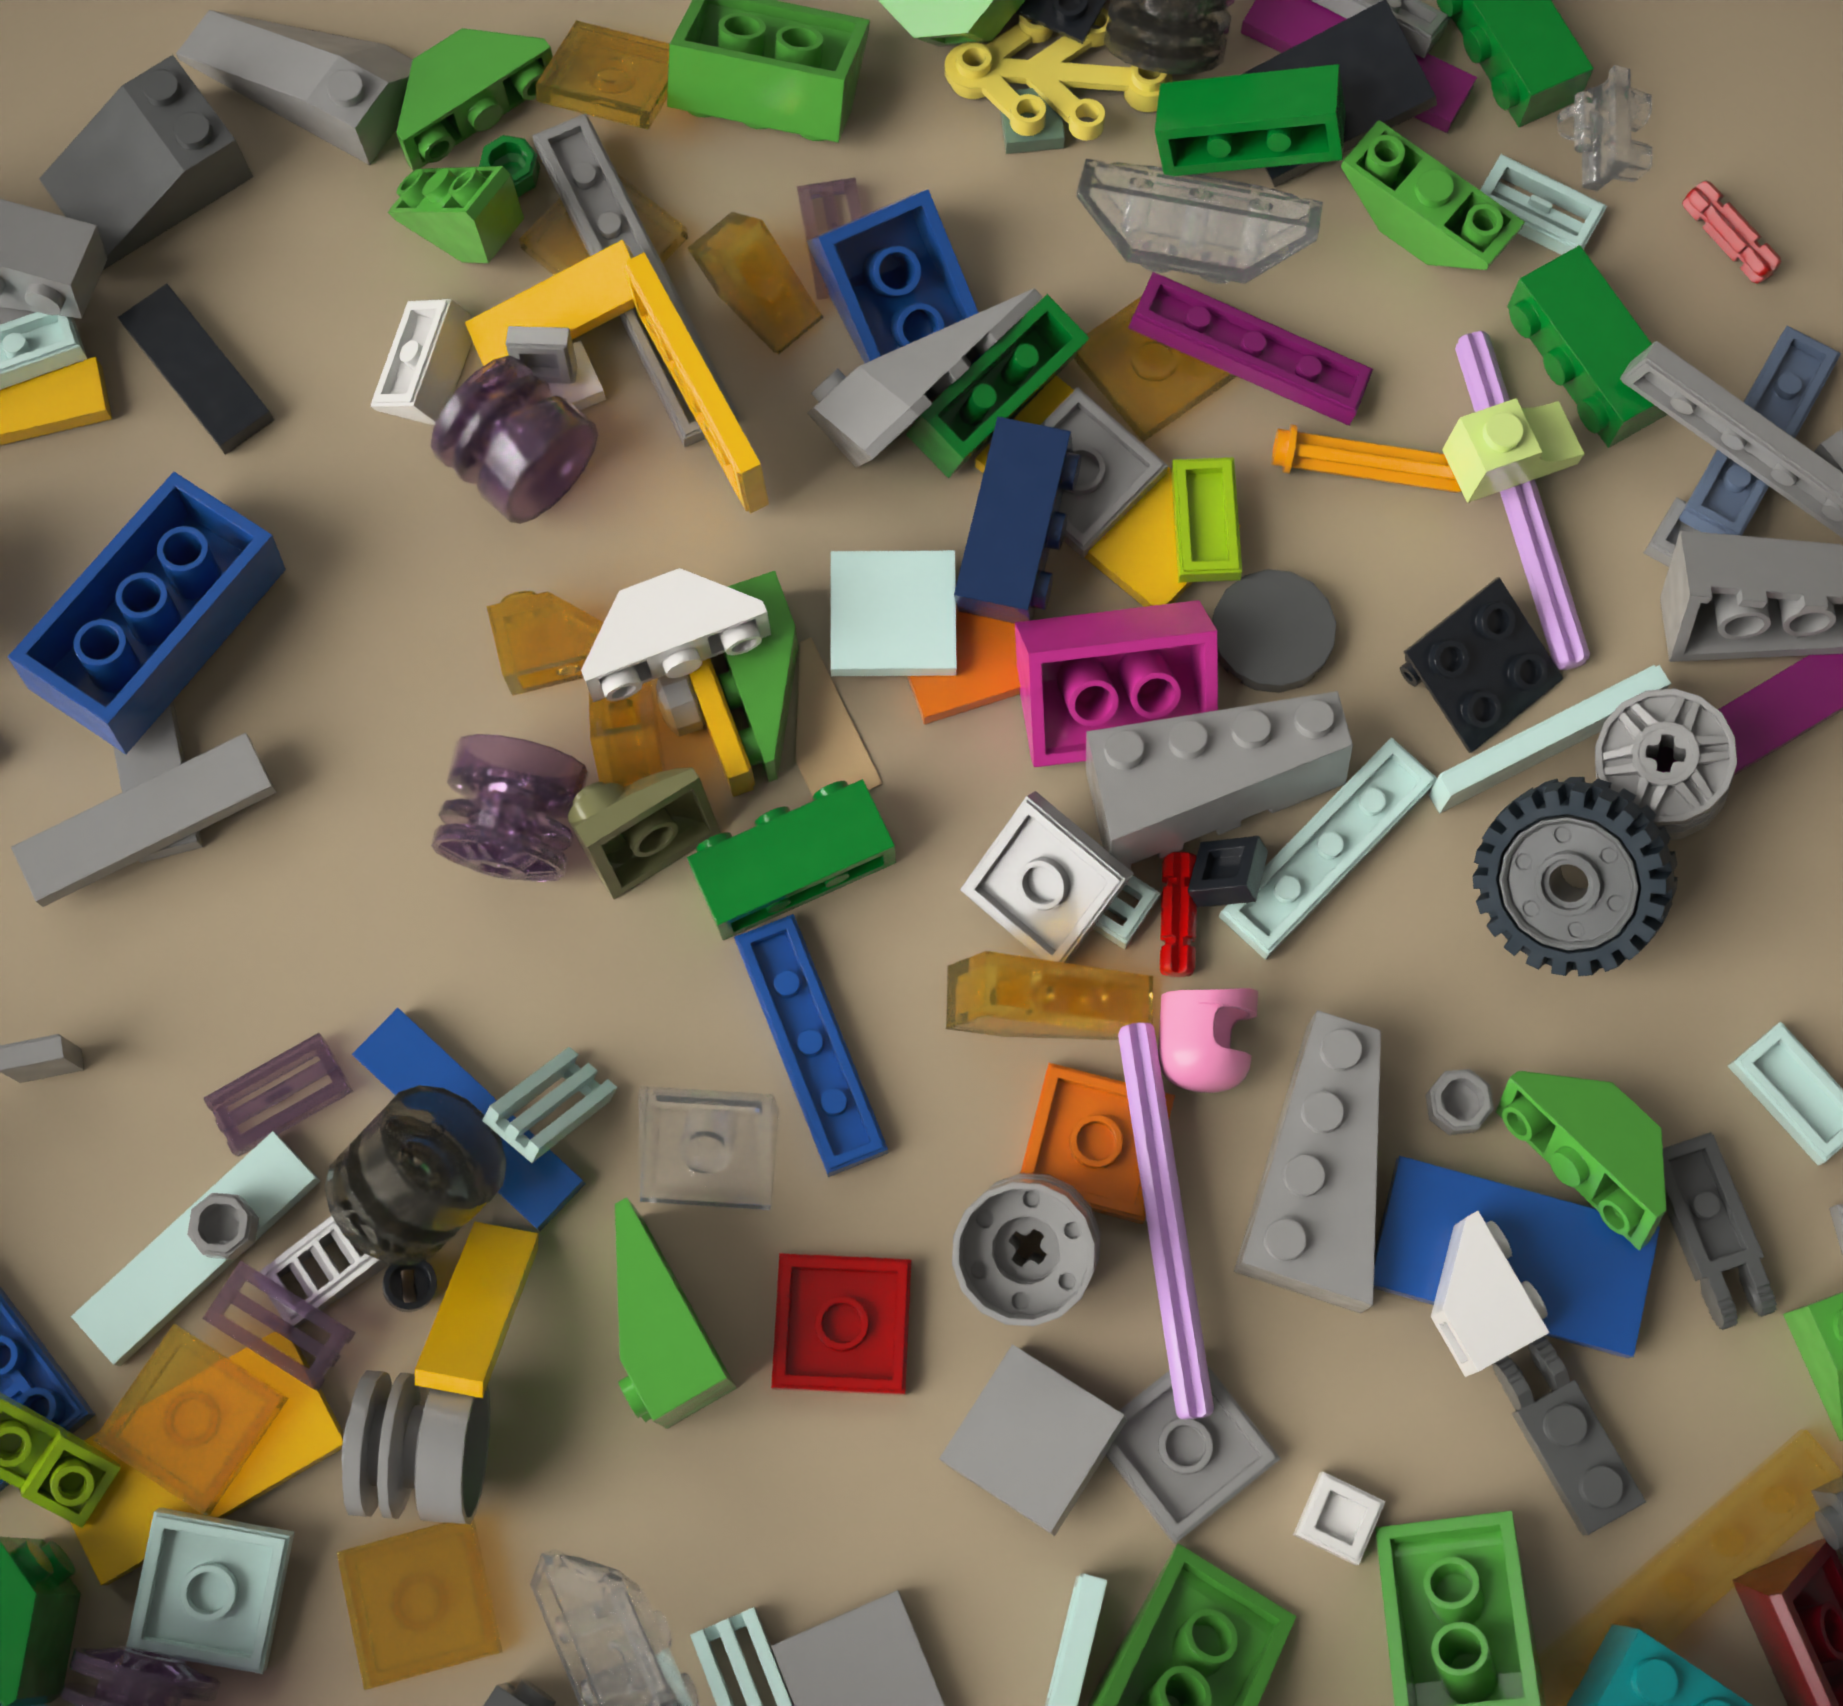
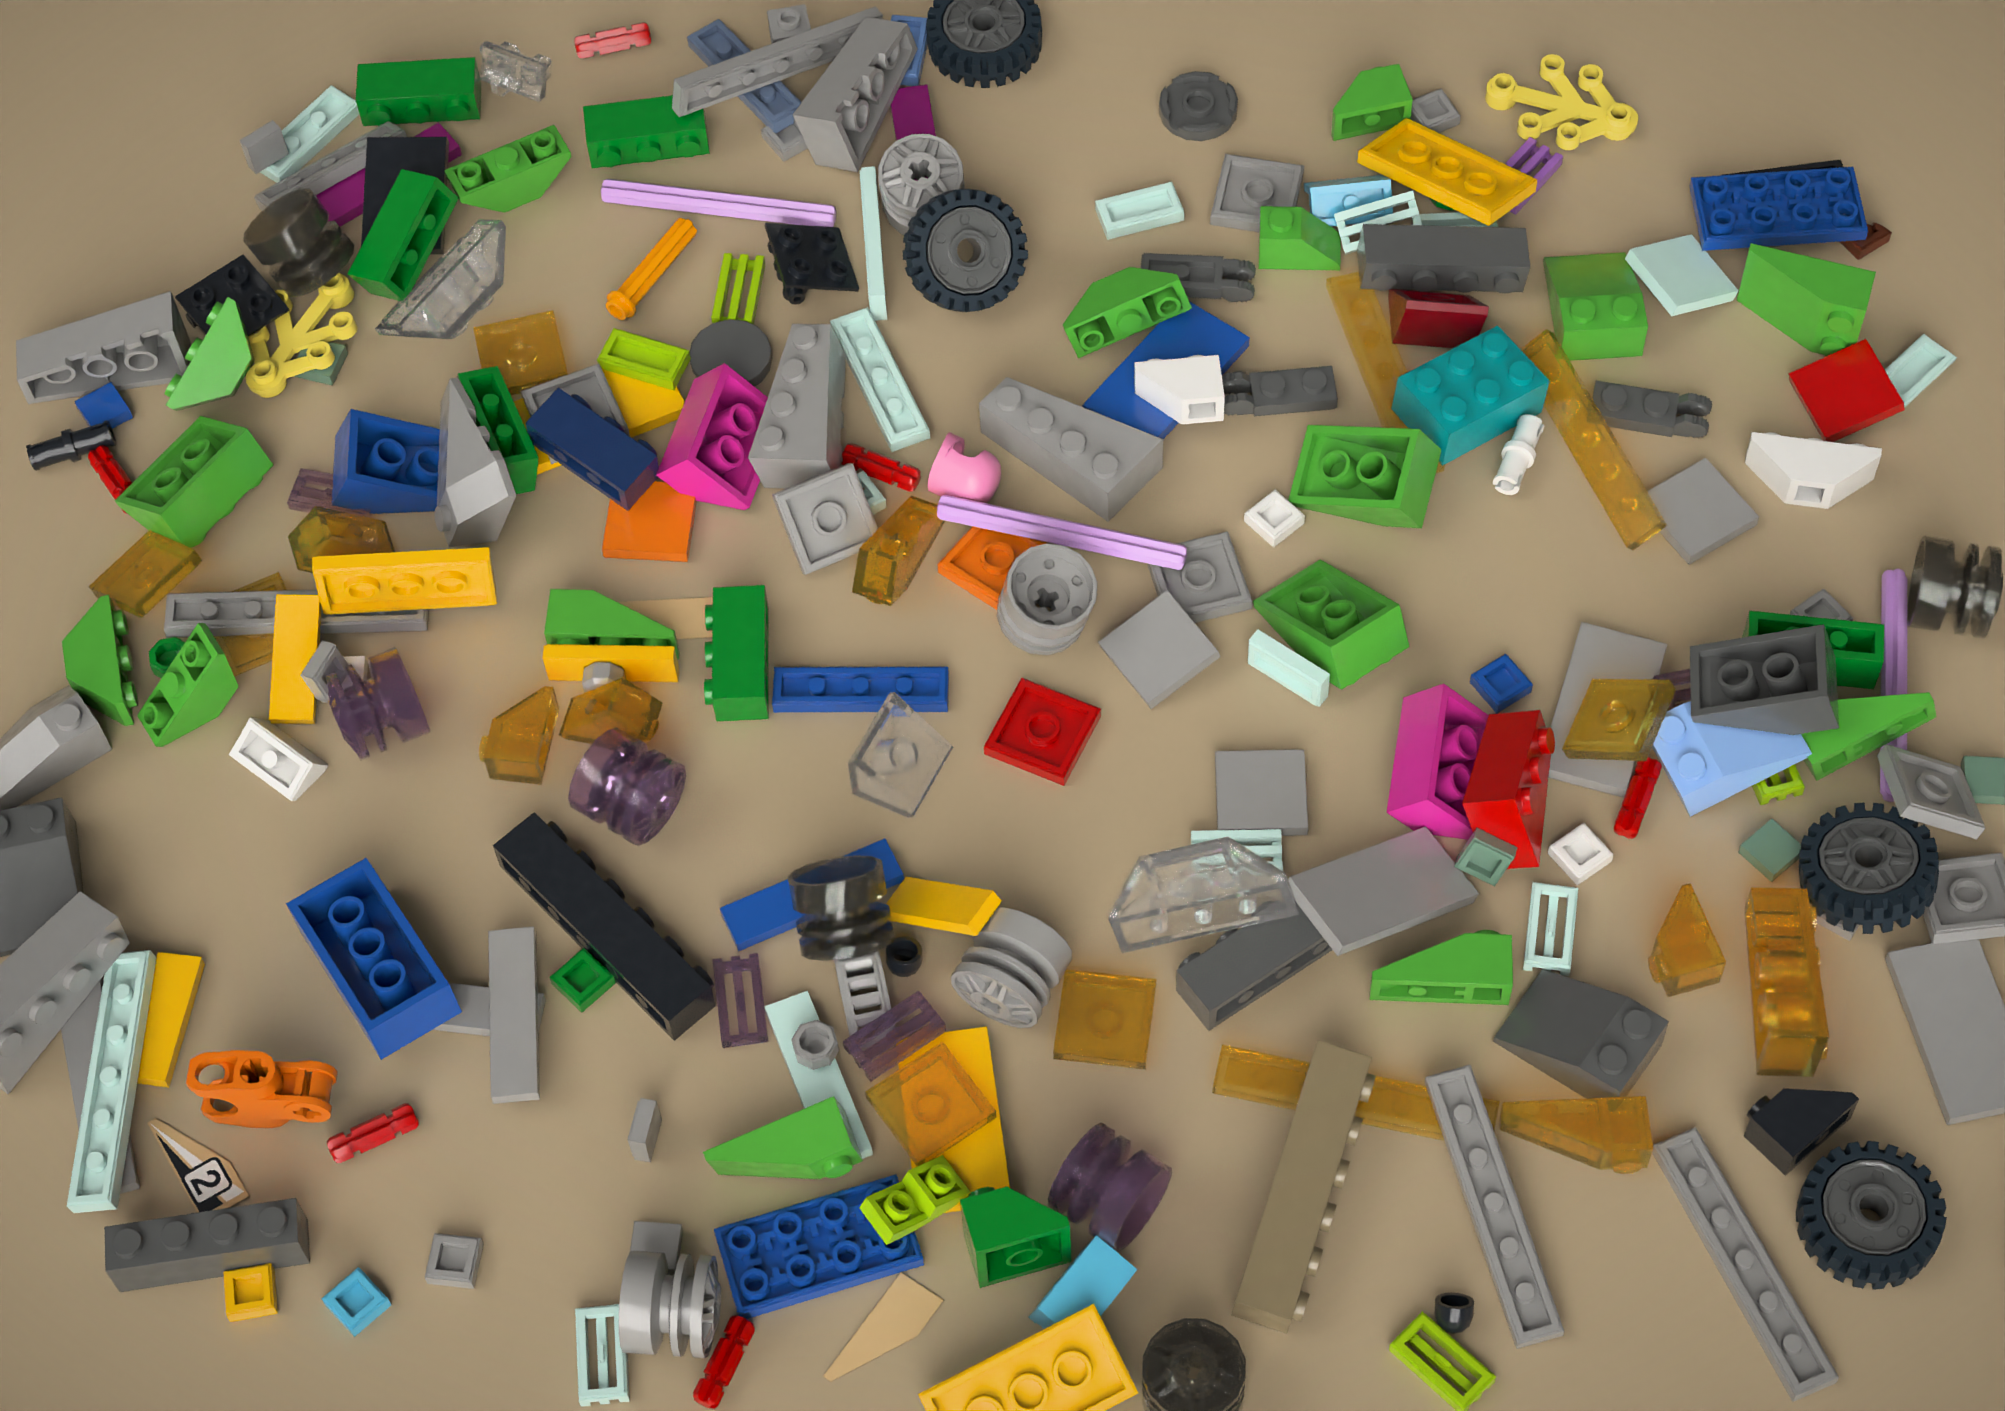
camera: 65 degrees left, 15 degrees down
(61, 1268) = (801, 1145): none -> bright green slope
(196, 368) = (201, 896): black tile -> none
(210, 1590) = (1039, 1128): light aqua tile -> none
(240, 880) = (582, 980): none -> green tile
(315, 874) = (605, 925): none -> black brick
(576, 1080) = (827, 823): light aqua tile -> none
(642, 826) = (676, 718): olive slope -> none
(661, 1339) = (996, 809): bright green slope -> none
(668, 631) = (562, 647): white slope -> none
(893, 613) = (611, 542): light aqua tile -> none
(1228, 871) = (869, 426): black plate -> none
(1251, 348) = (545, 298): magenta tile -> none
(1422, 558) = (742, 265): none -> lime tile
(1459, 1102) = (1064, 368): light grey tile -> none
(1510, 447) = (688, 190): yellowish green arch -> none
(1542, 221) = (565, 120): light aqua tile -> none

